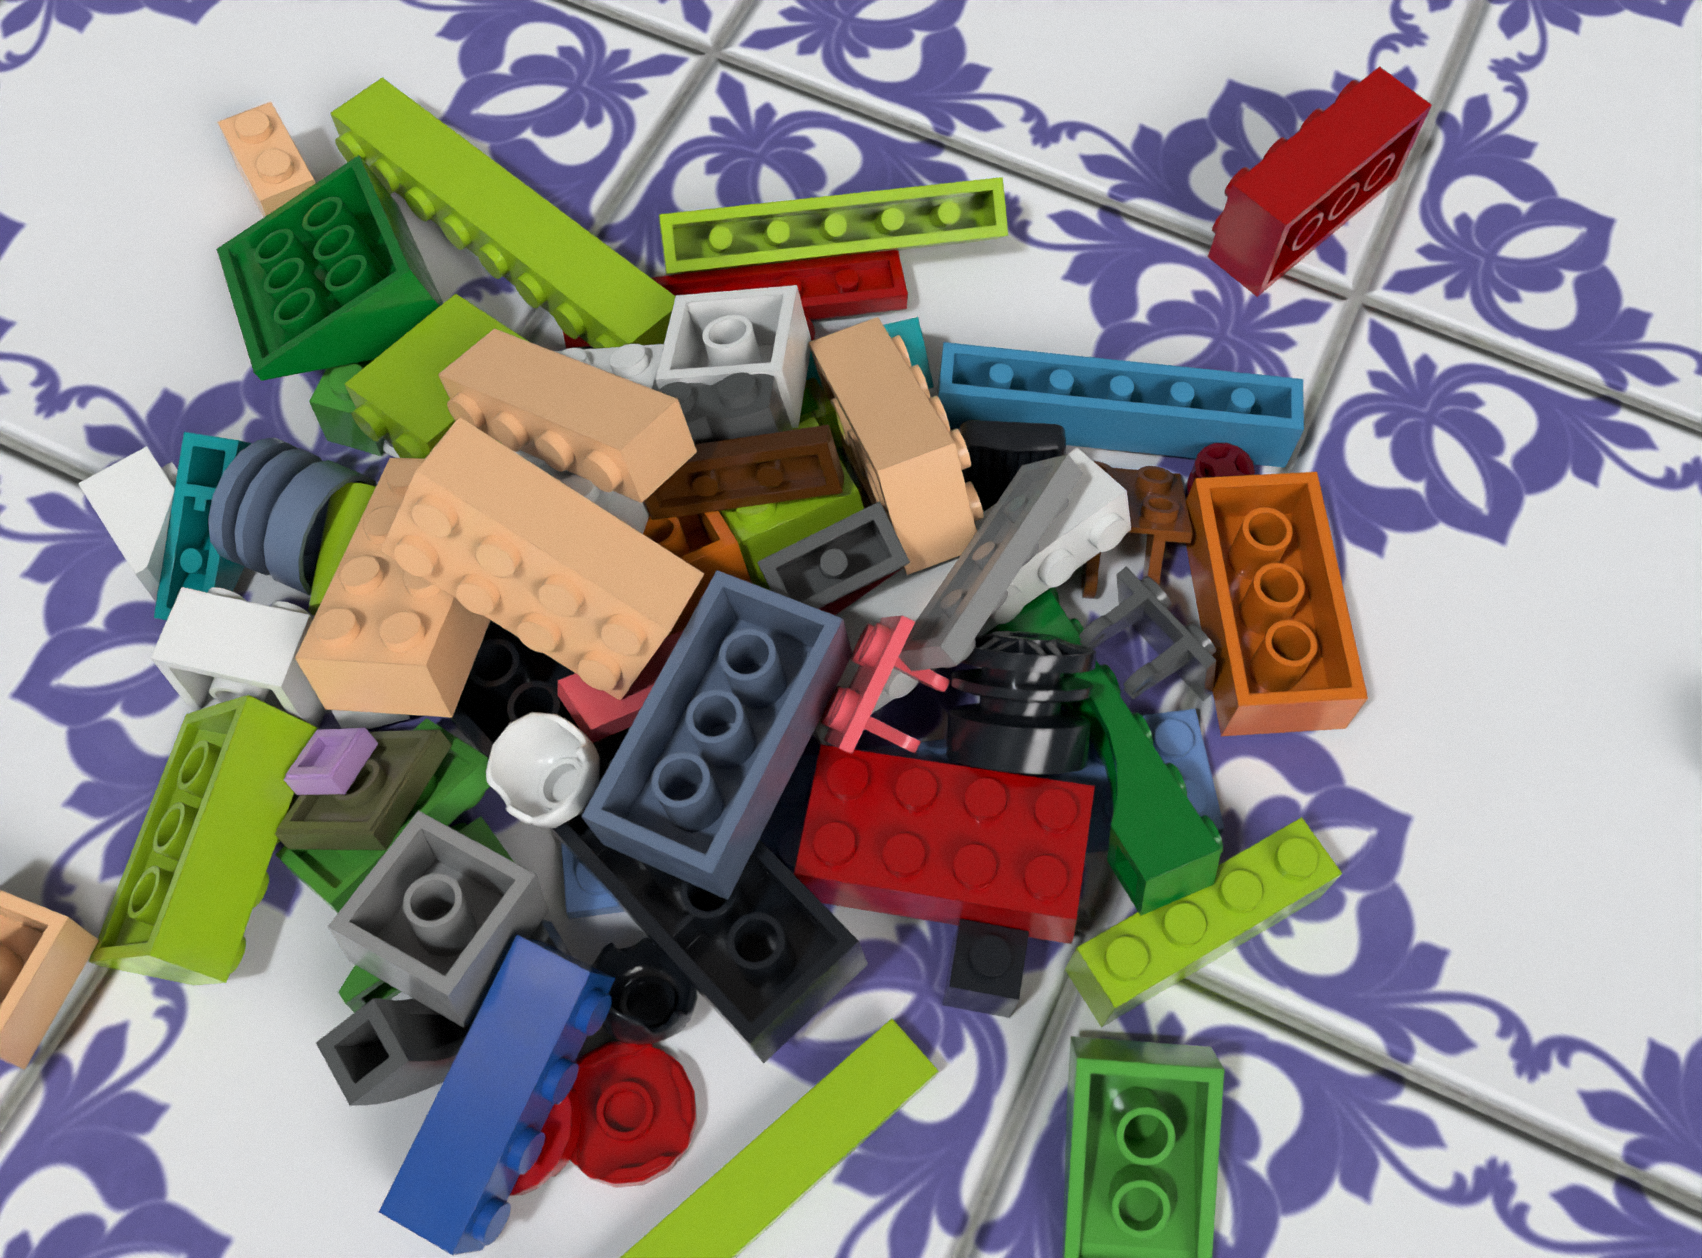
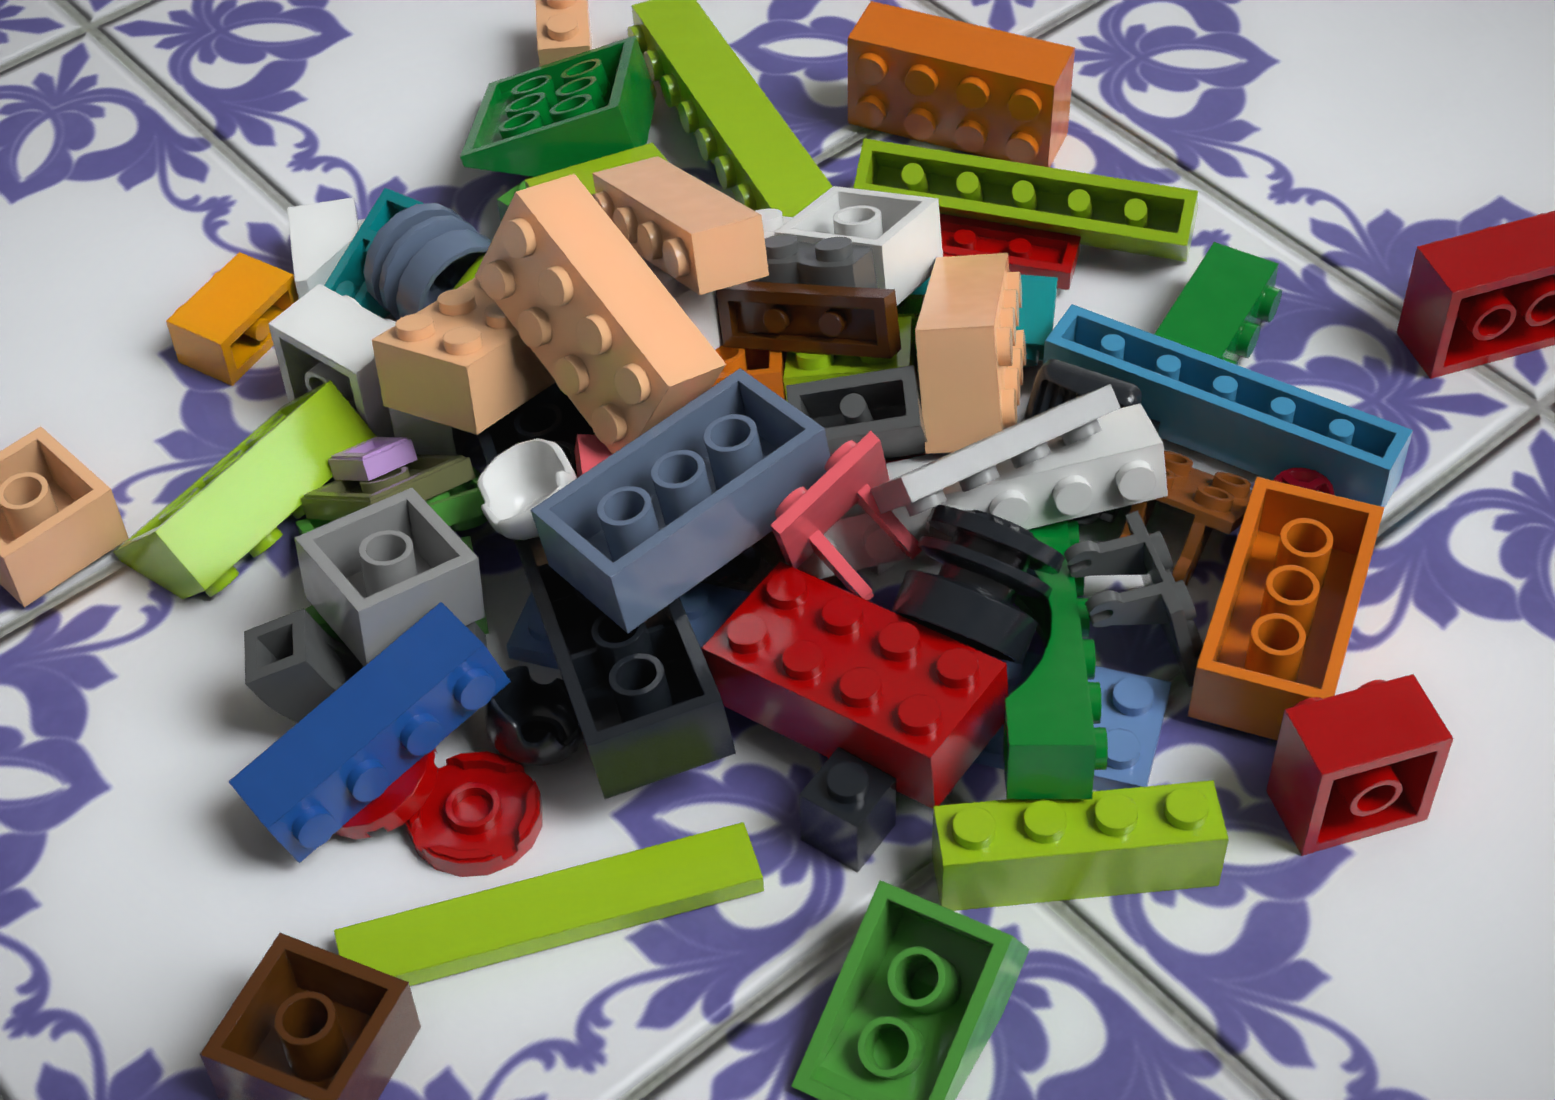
camera: 30 degrees right, 15 degrees down
(81, 632) = (227, 319): none -> light orange brick
(709, 113) = (959, 85): none -> orange brick
(1060, 291) = (1224, 304): none -> green brick
(1403, 742) = (1358, 763): none -> red brick

